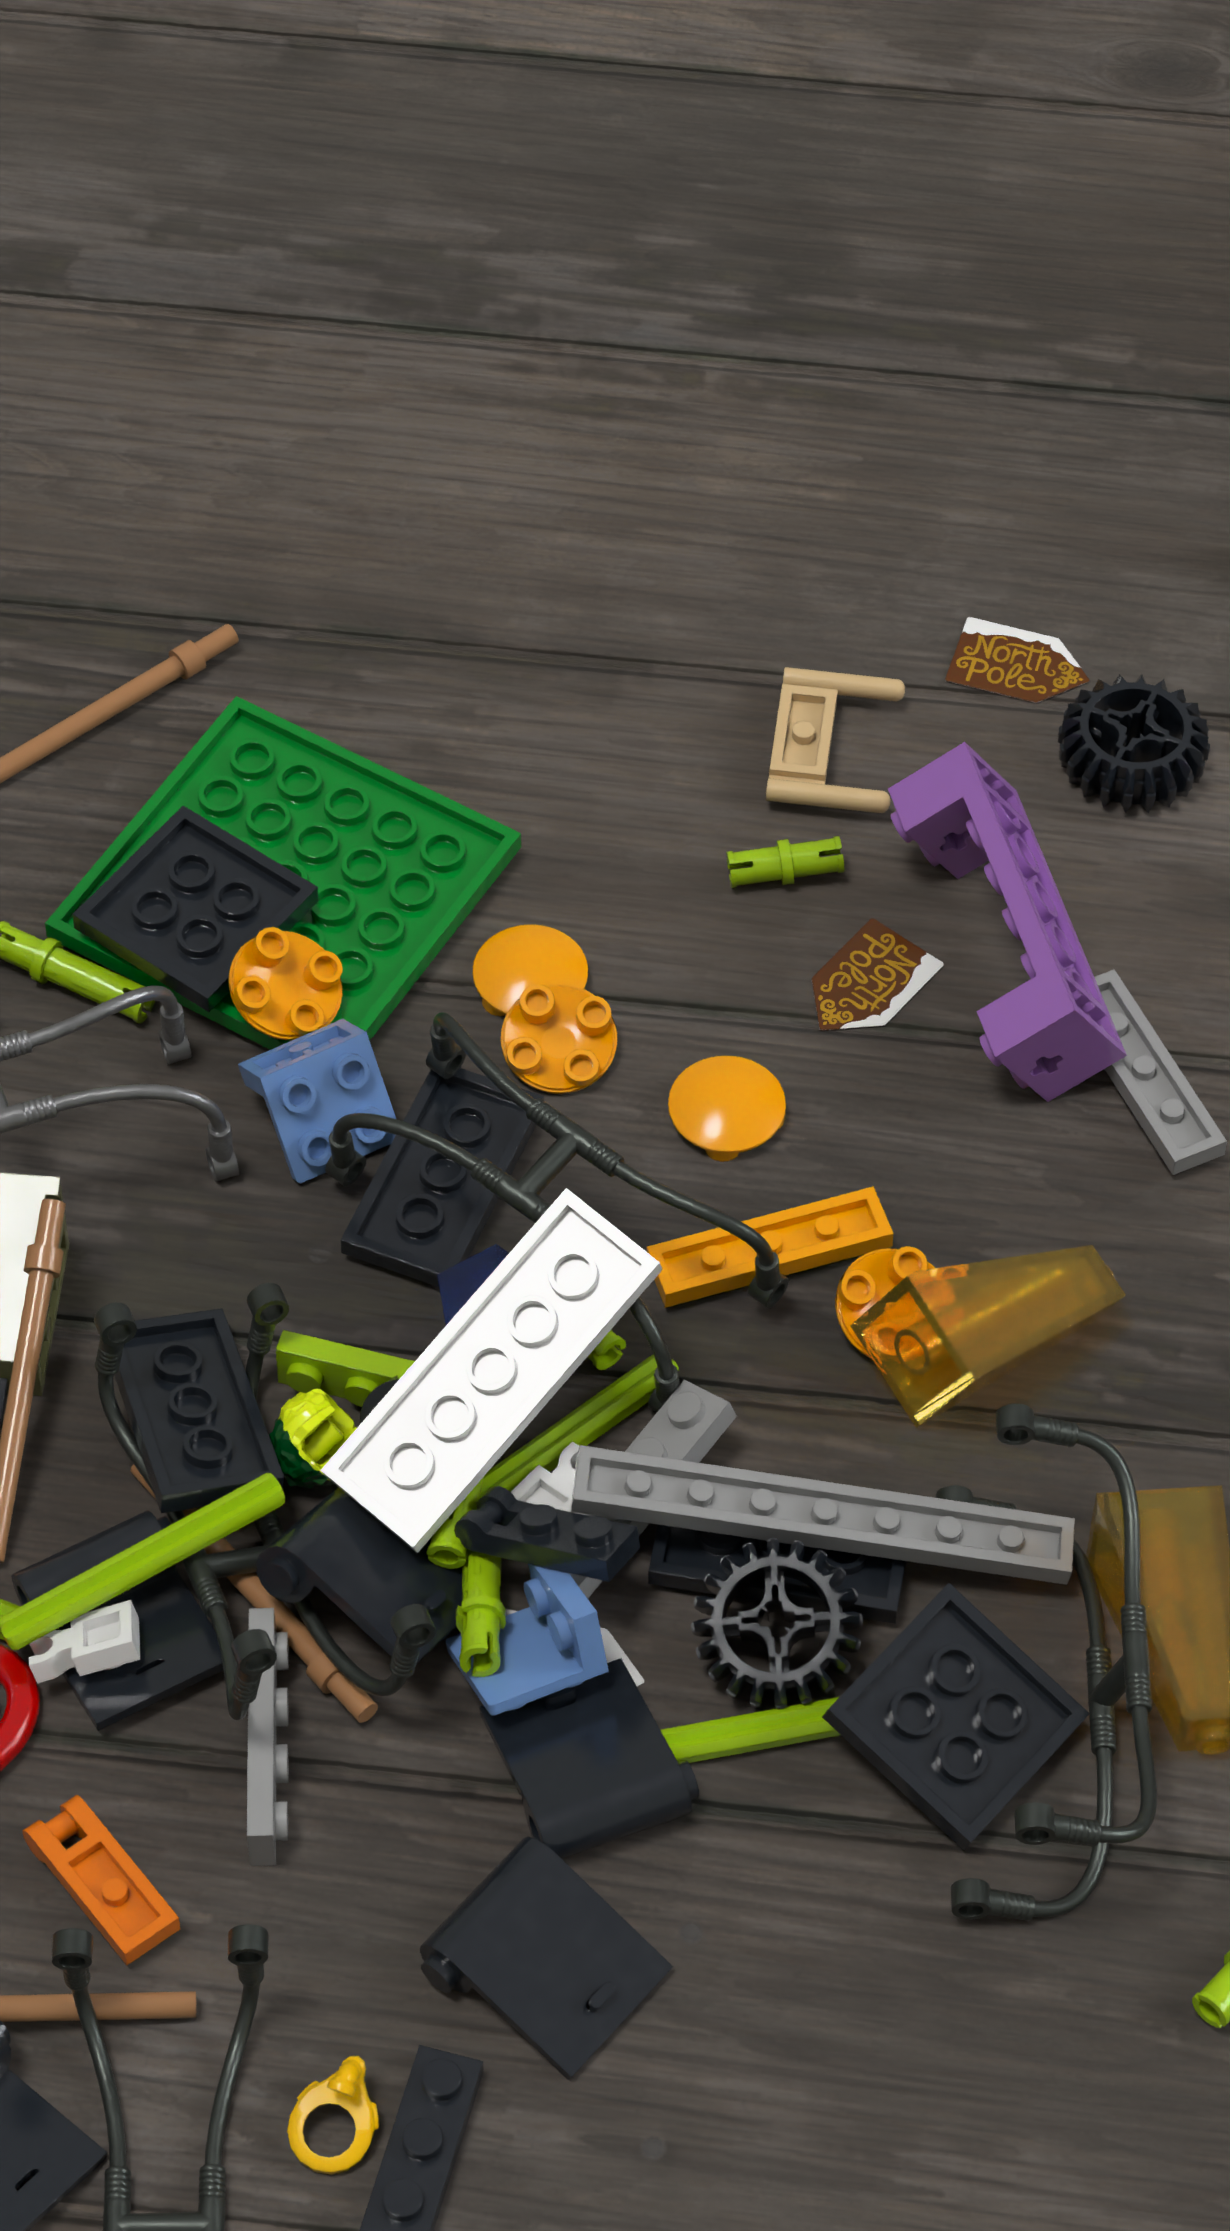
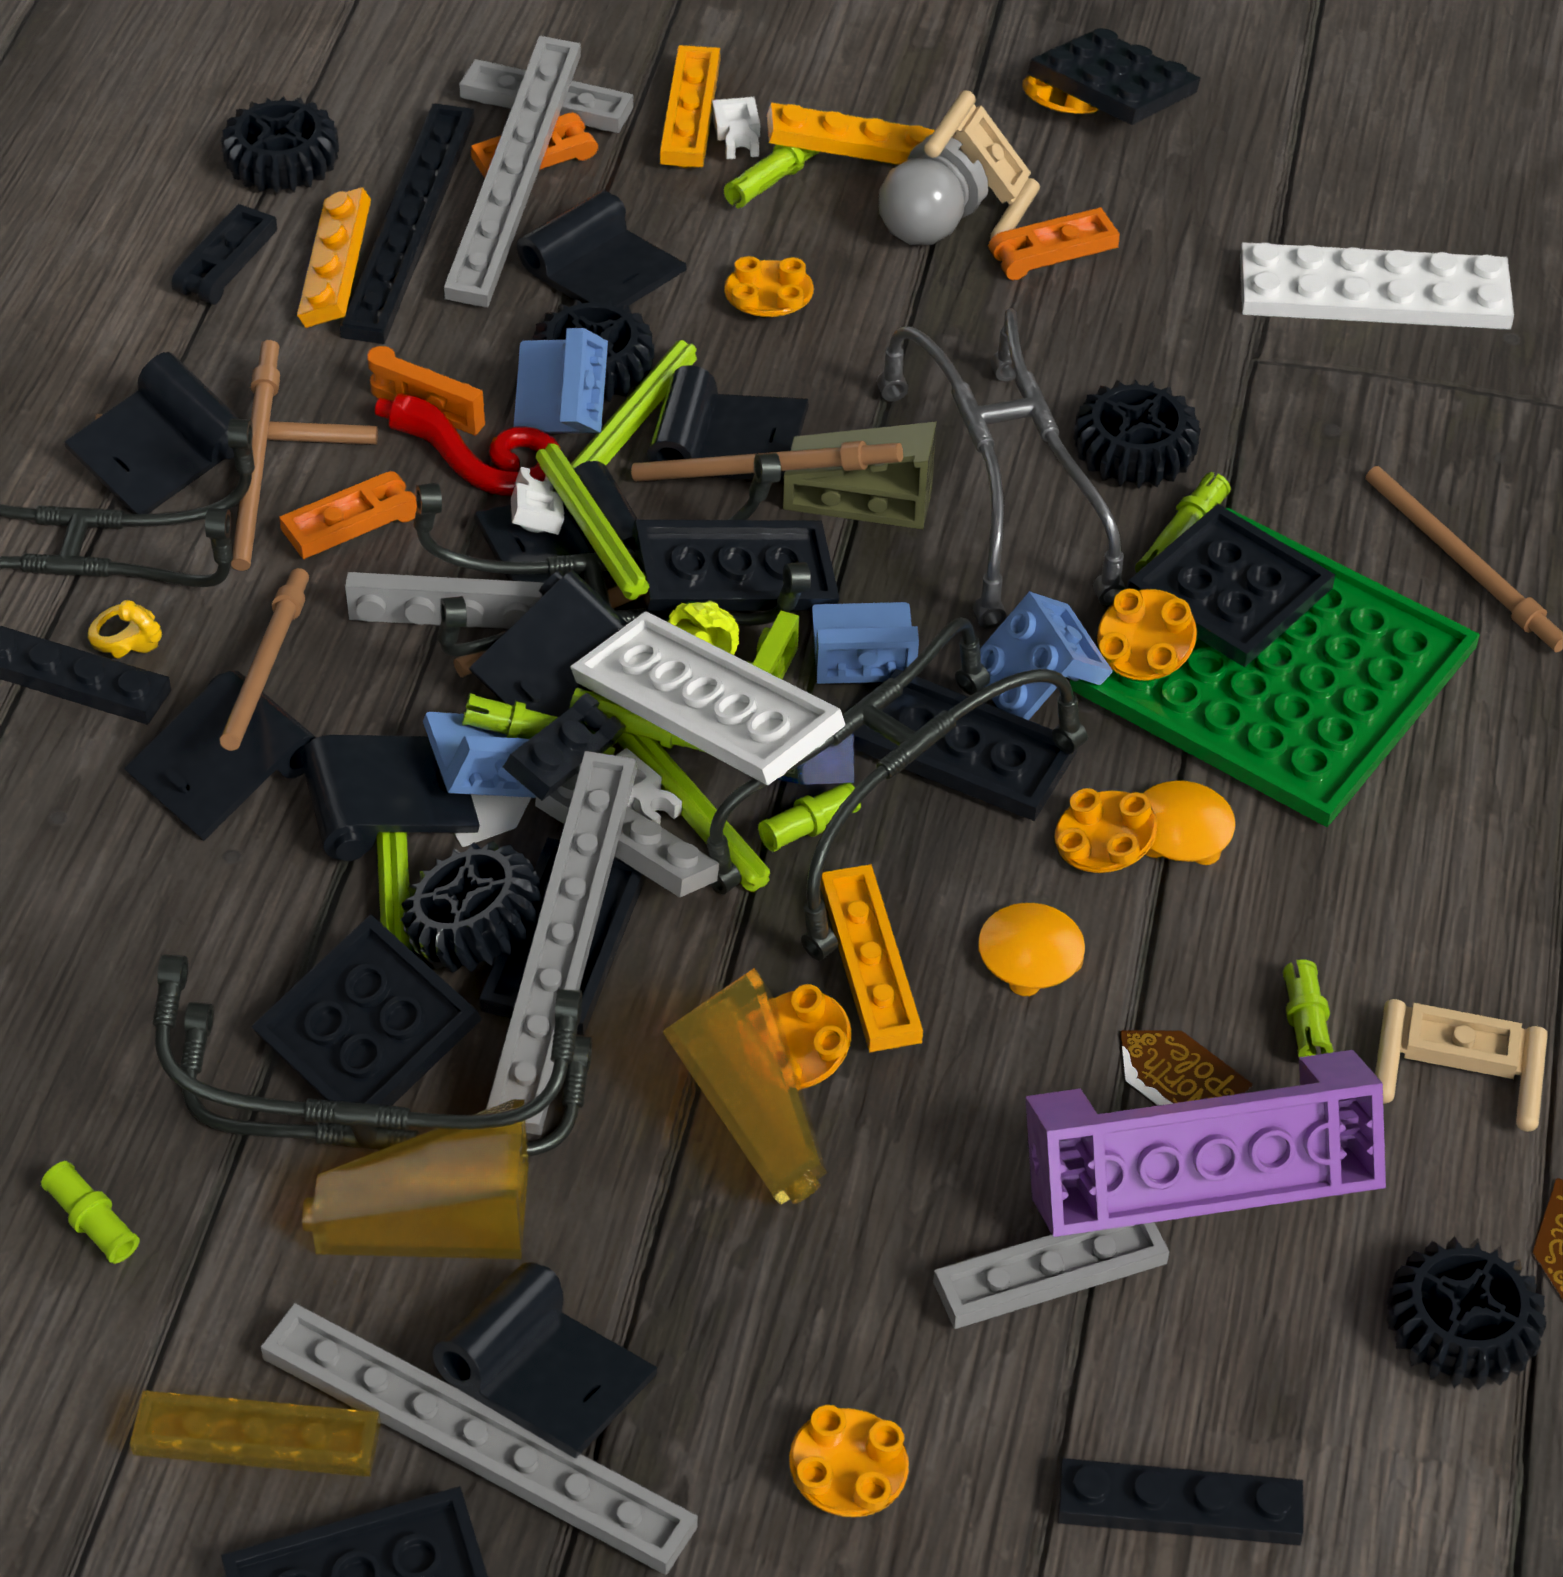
camera: 95 degrees right, 5 degrees down
(284, 1922) = (286, 607): none -> medium nougat bar
(303, 1263) = (862, 641): none -> medium blue bracket

